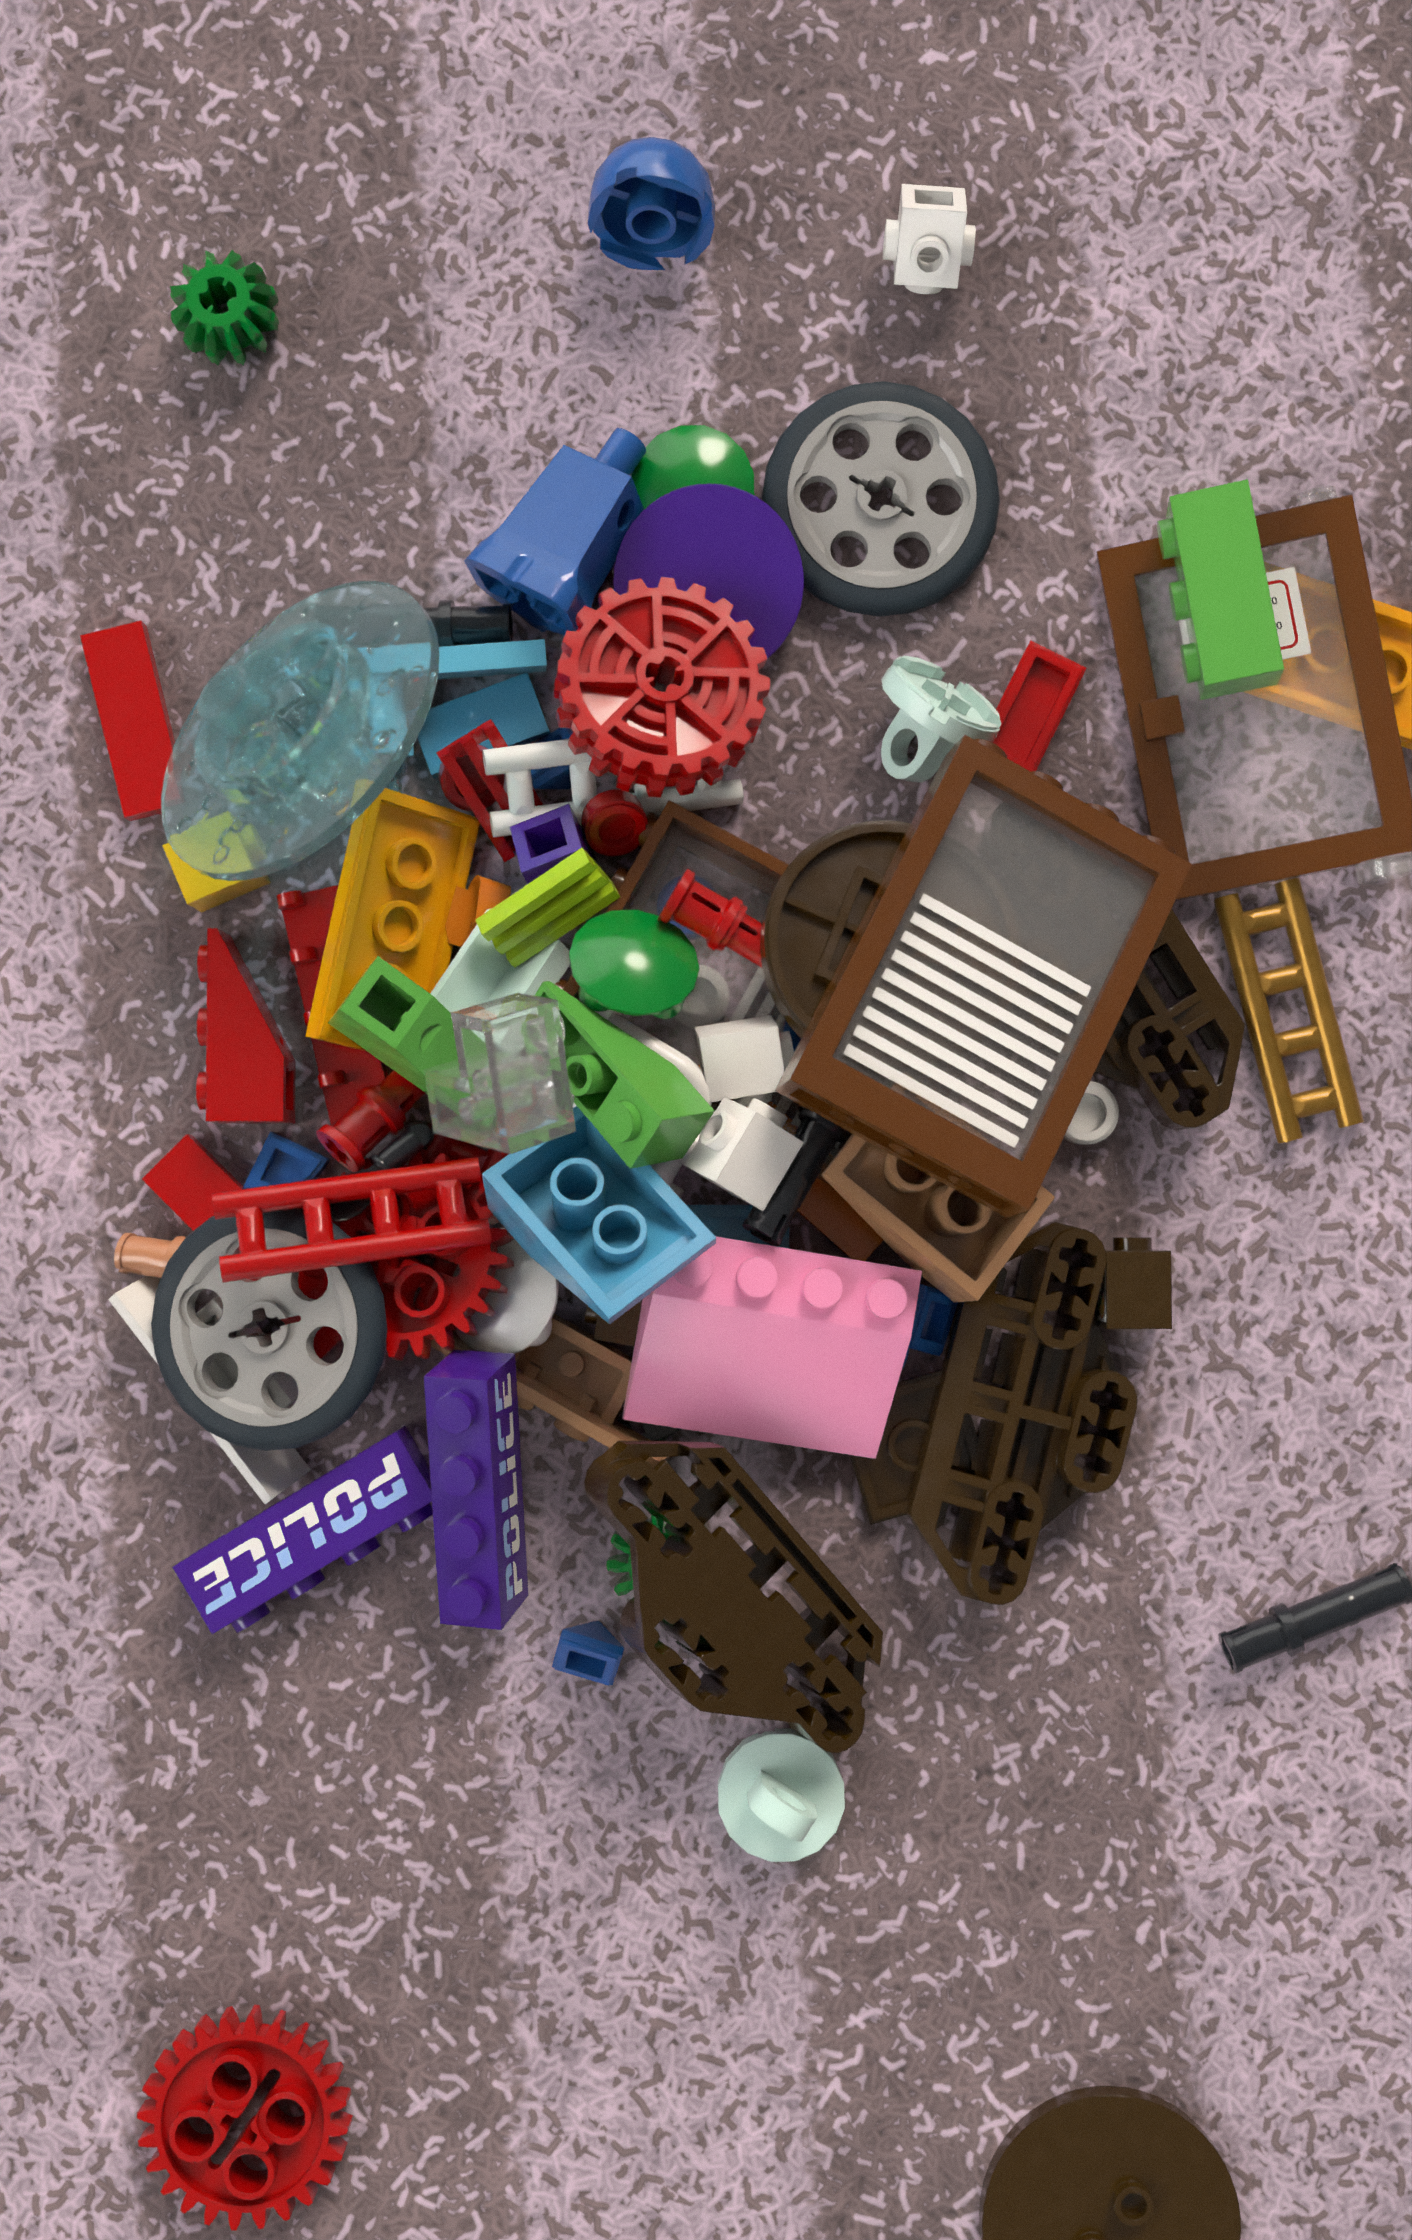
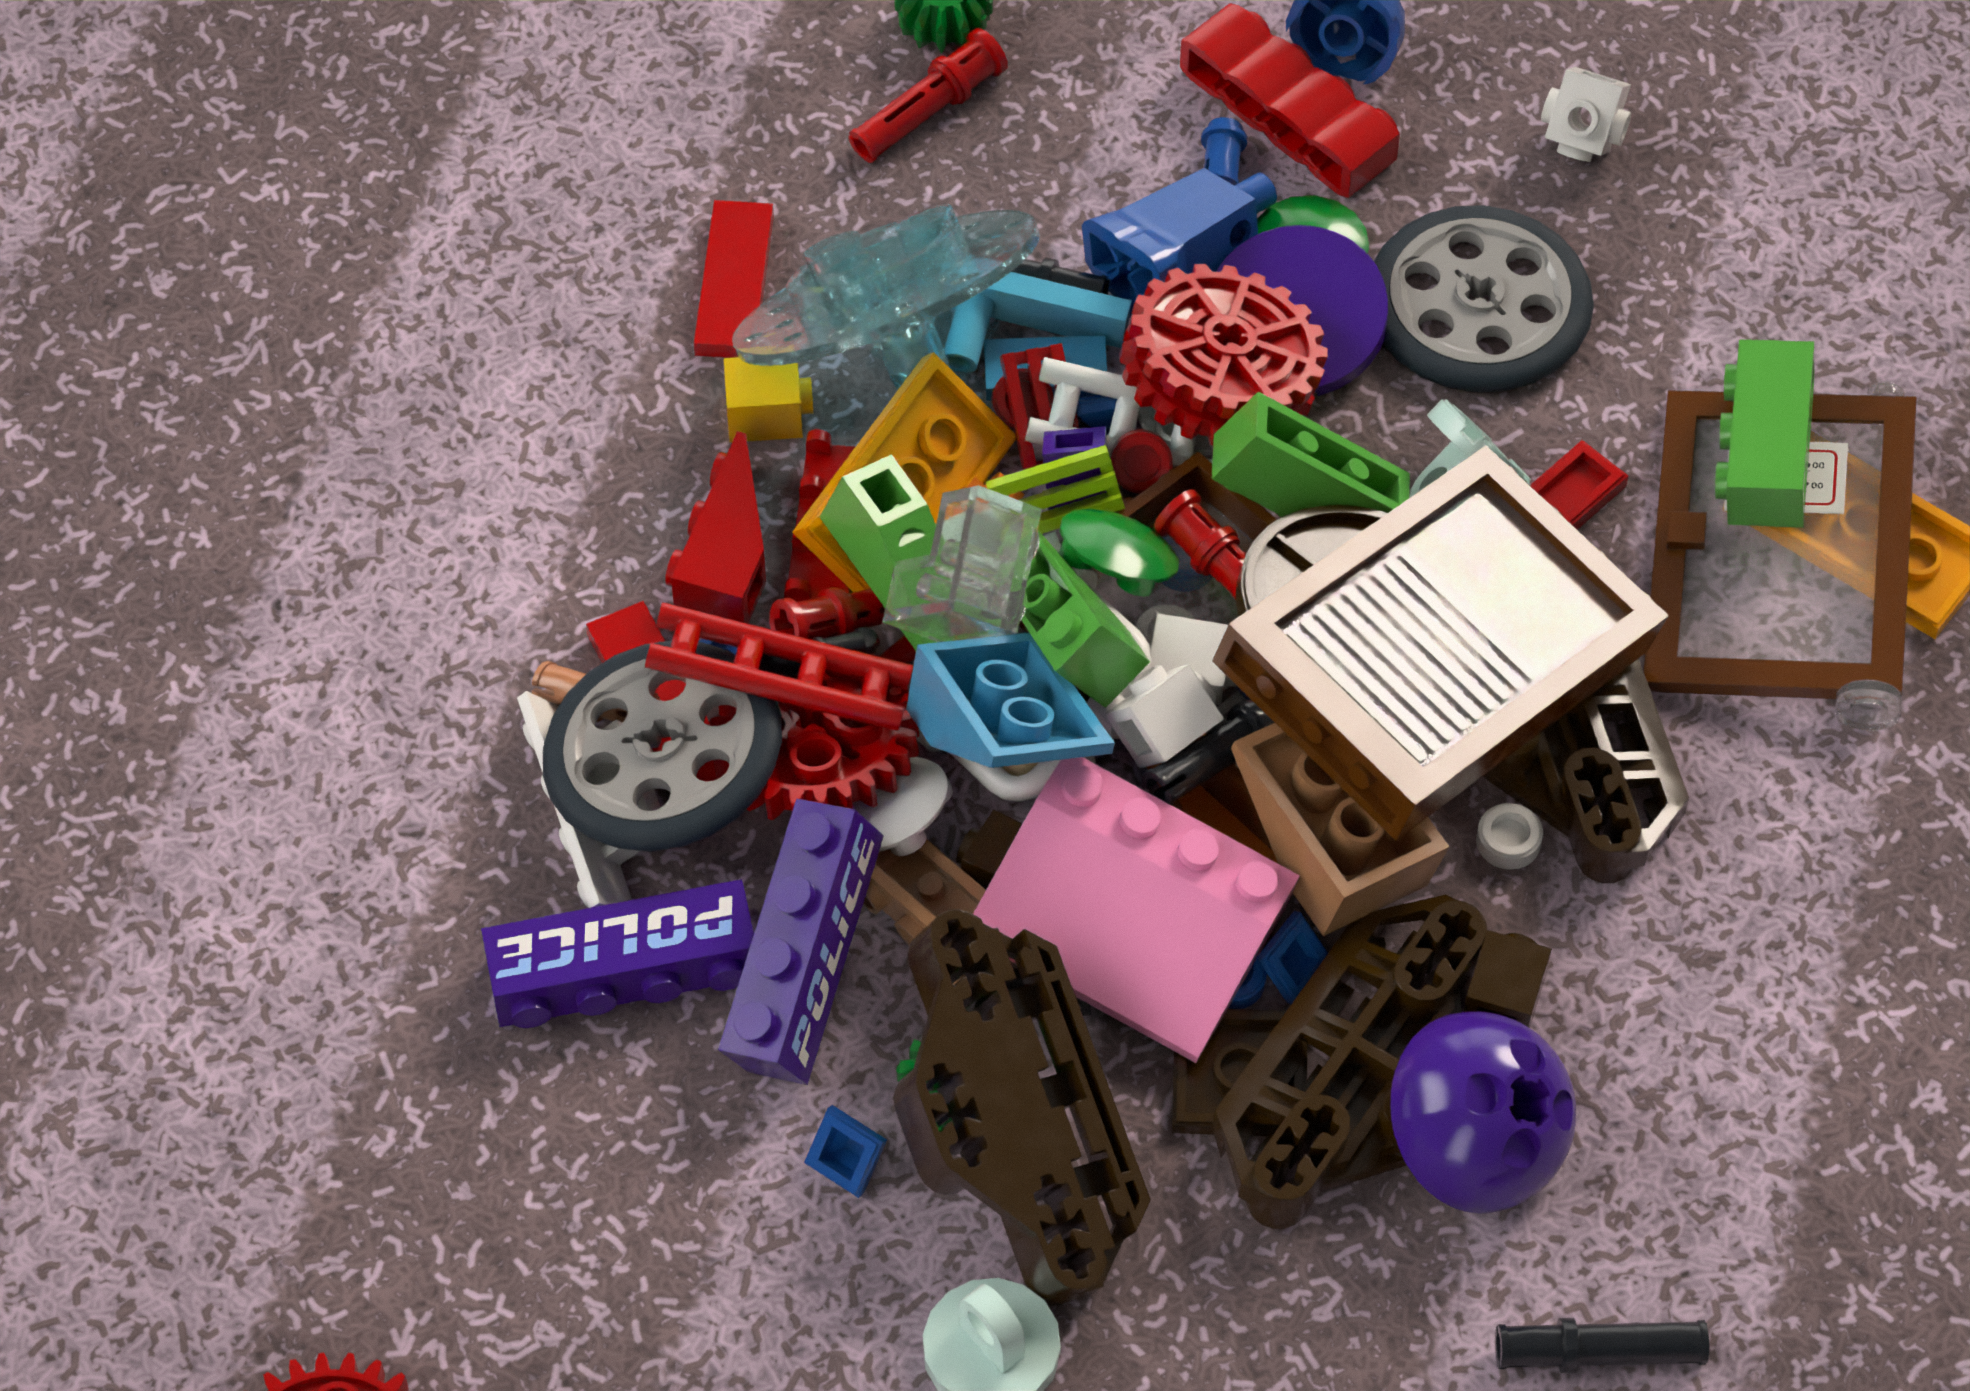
camera: 15 degrees right, 30 degrees down
(267, 397) = (947, 82): none -> red pin
(572, 406) = (1223, 144): none -> blue pin
(617, 314) = (1290, 100): none -> red brick
(786, 801) = (1298, 464): none -> bright green brick
(1158, 1444) = (1482, 1111): none -> dark purple piece
(1320, 1034) = (1711, 835): pearl gold bar -> none

